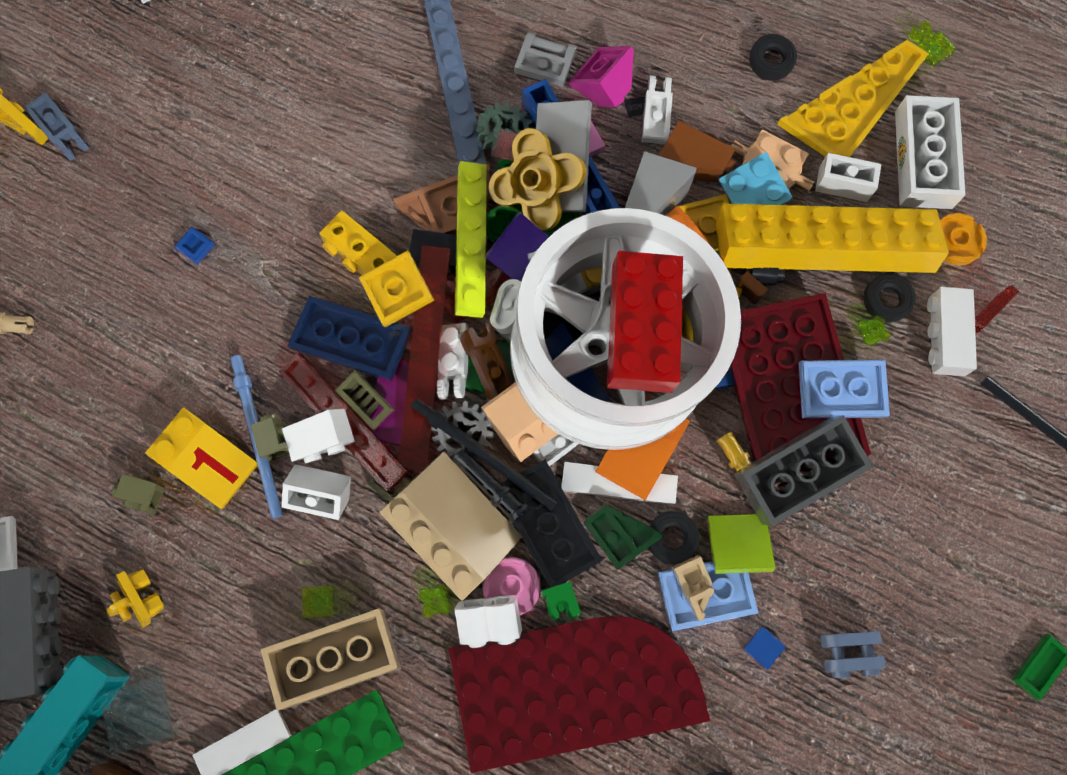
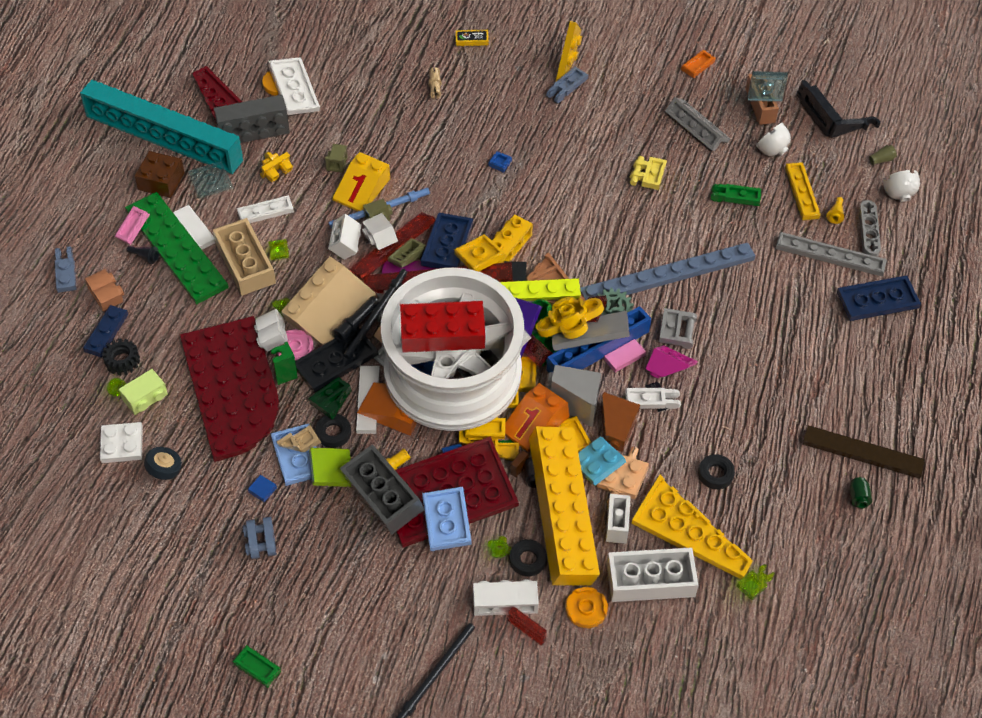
camera: 85 degrees right, 20 degrees down
(225, 622) = (266, 209): none -> white tile
(263, 38) = (653, 174): none -> light yellow plate

